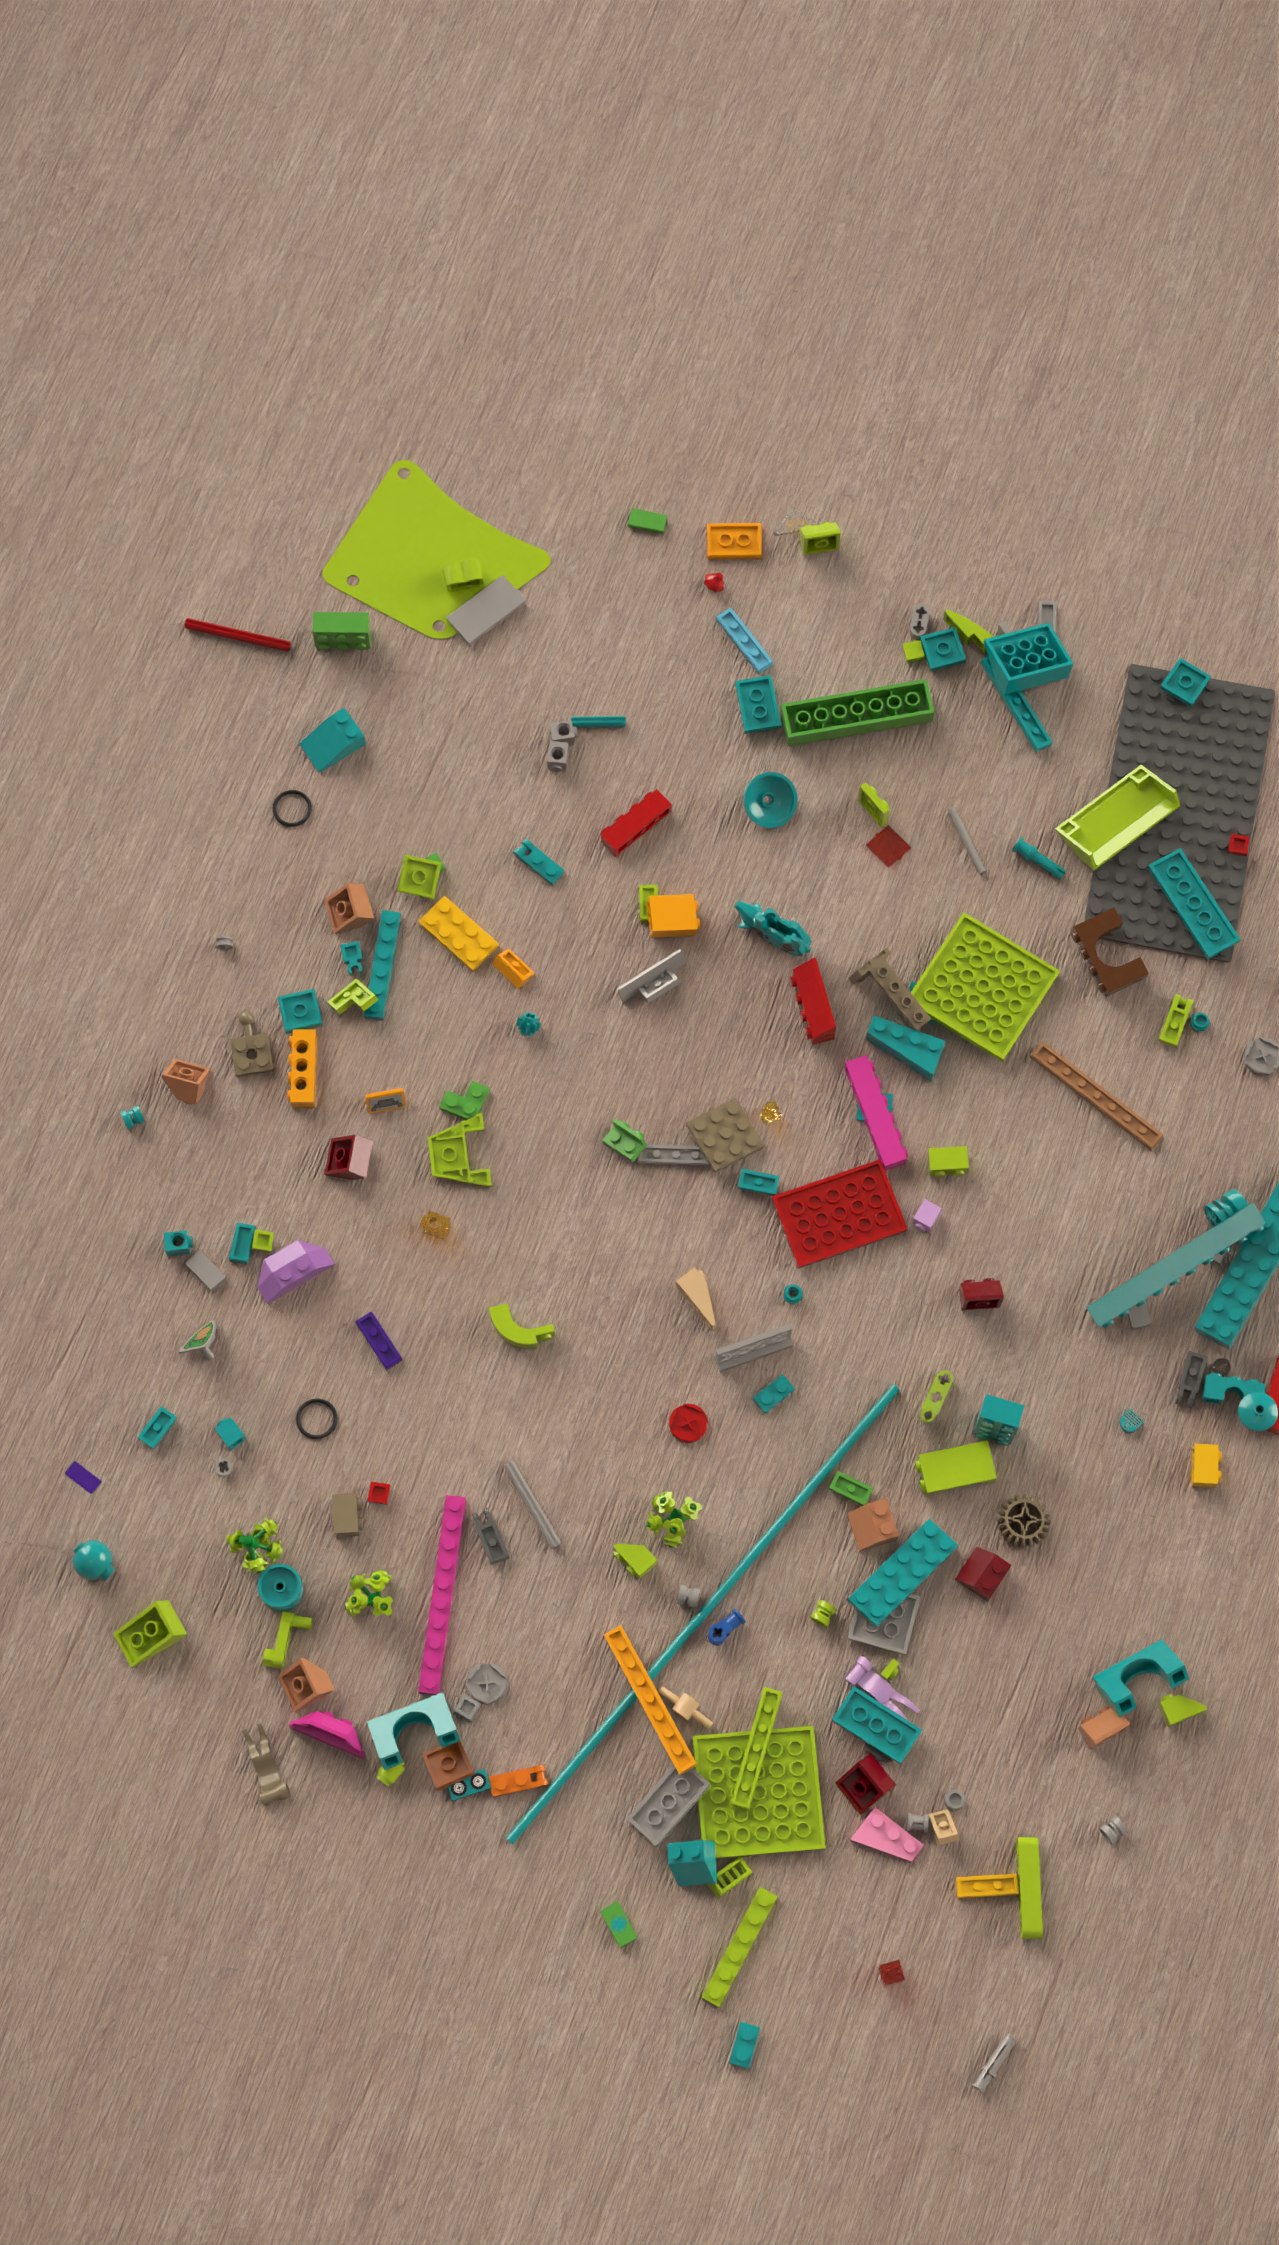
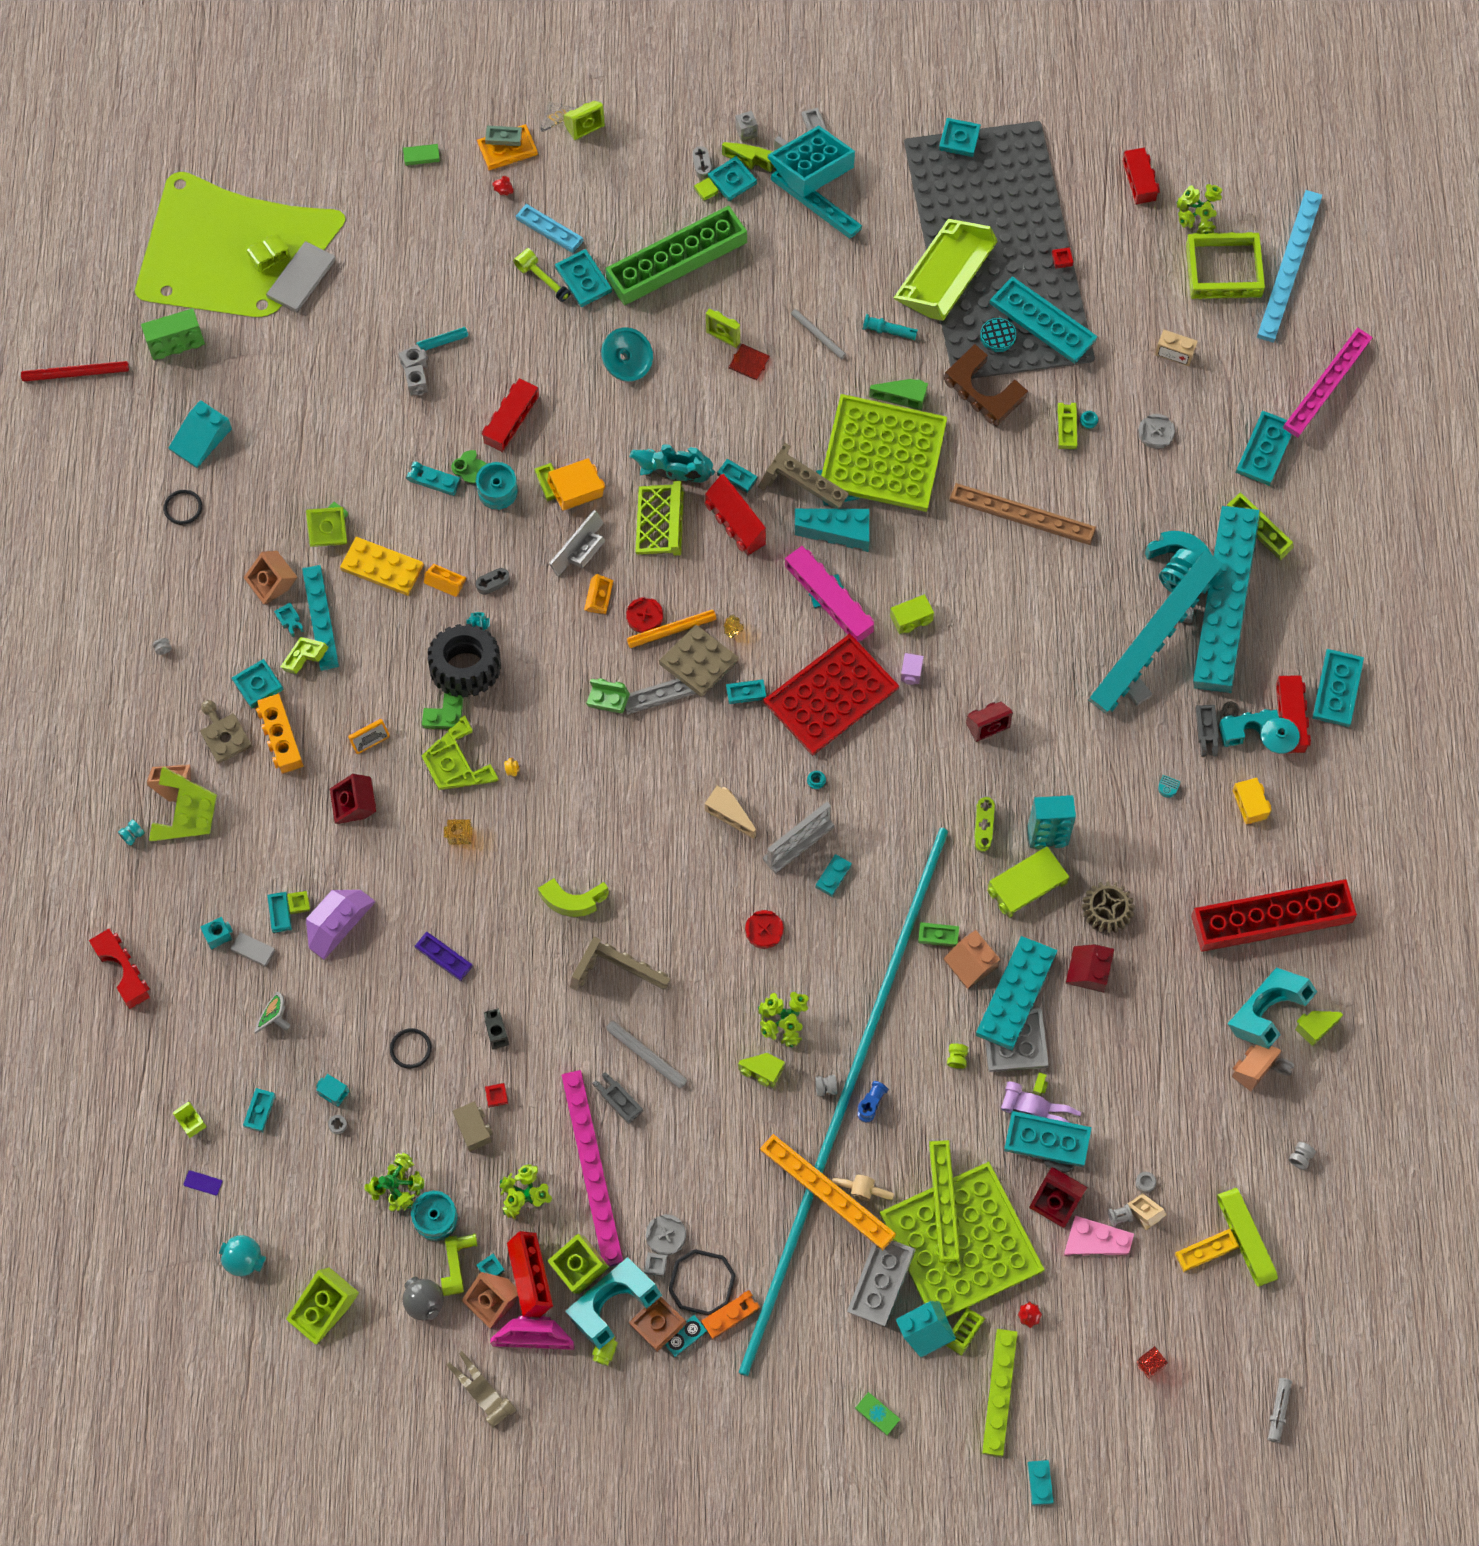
camera: 20 degrees left, 5 degrees down
(81, 1268) = (108, 949): none -> red arch
(91, 1414) = (189, 1119): none -> lime bracket
(196, 1115) = (192, 812): none -> lime wing
(242, 1661) = (422, 1299): none -> dark grey brick
(315, 1654) = (491, 1266): none -> teal plate
(346, 1676) = (529, 1274): none -> red brick
(395, 1682) = (578, 1264): none -> lime brick
(401, 1429) = (495, 1029): none -> pearl dark grey leg
(481, 1723) = (710, 1255): none -> black piece
(500, 1036) = (459, 641): none -> black tyre
(508, 1178) = (511, 767): none -> yellow plate
(543, 1407) = (622, 960): none -> dark tan bracket
(556, 981) = (492, 581): none -> dark grey beam
(580, 861) = (470, 464): none -> bright green plate
(596, 891) = (496, 485): none -> teal wheel
(654, 1034) = (598, 594): none -> light orange slope
(690, 1070) = (644, 614): none -> red tile
(709, 669) = (527, 261): none -> lime piece
(711, 1093) = (671, 628): none -> light orange axle
(733, 529) = (503, 135): none -> sand green plate
(755, 986) = (675, 523): none -> lime fence
(795, 1885) = (1029, 1314): none -> red piece
(832, 960) = (738, 475): none -> teal plate
(977, 598) = (746, 126): none -> light grey brick
(1027, 931) = (902, 392): none -> bright green slope
(1130, 1738) = (1284, 1067): none -> light grey bush
(1143, 903) = (998, 334): none -> tile
(1180, 1587) = (1273, 915): none -> red brick
(1238, 1180) = (1173, 541): none -> teal arch

